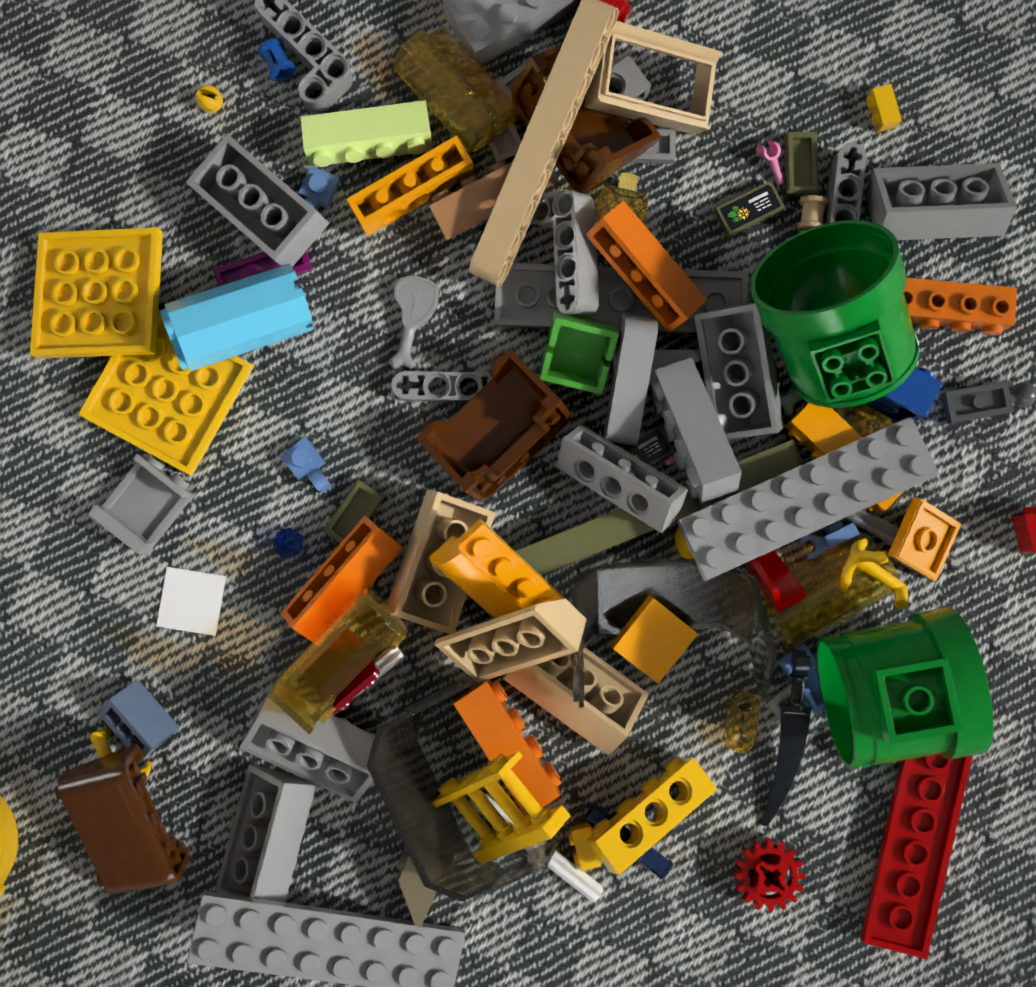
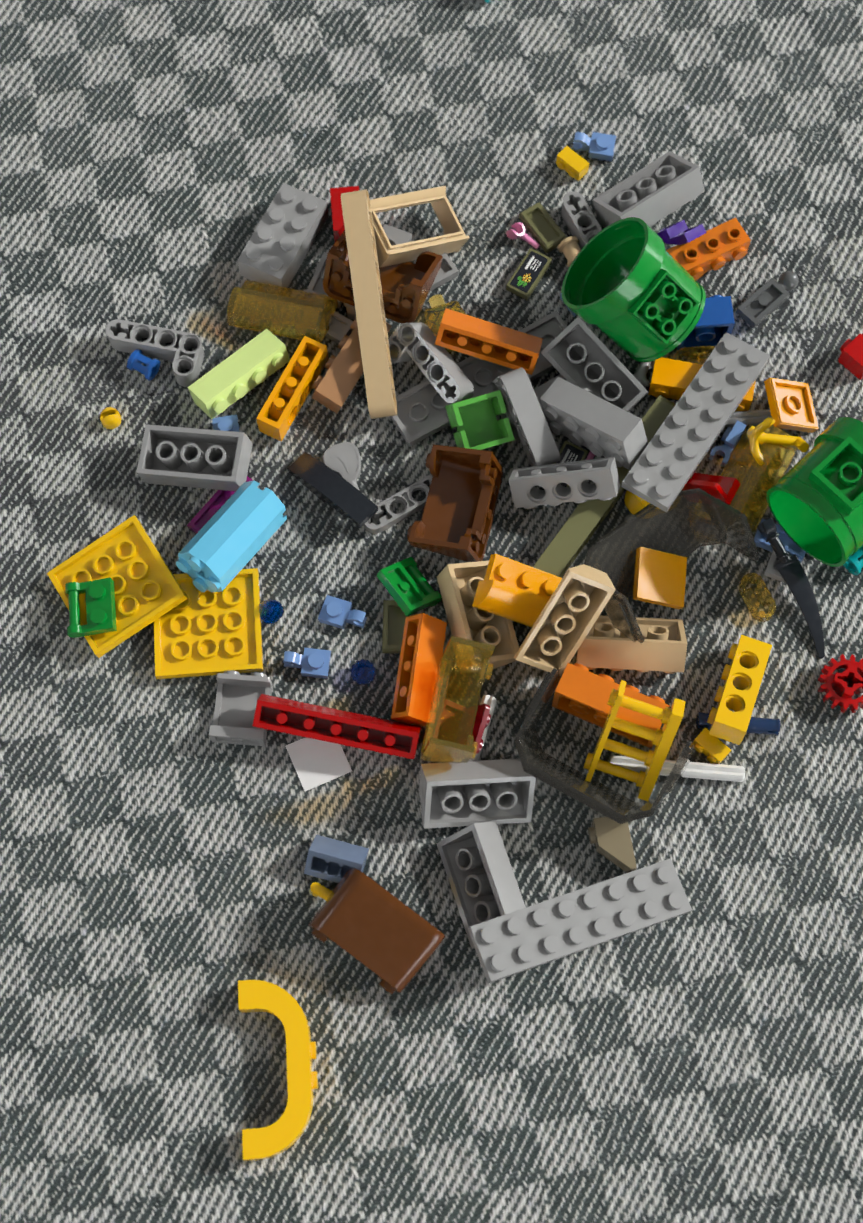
camera: 30 degrees left, 15 degrees down
(61, 306) = (99, 607): none -> green plate
(217, 587) = (336, 726): none -> red brick
(237, 417) = (270, 611): none -> clear blue piece
(246, 498) = (313, 662): none -> medium blue plate
(382, 325) = (333, 489): none -> black slope
(382, 482) = (408, 586): none -> green plate
(928, 105) = (599, 145): none -> medium blue plate
(940, 267) = (680, 234): none -> dark purple slope

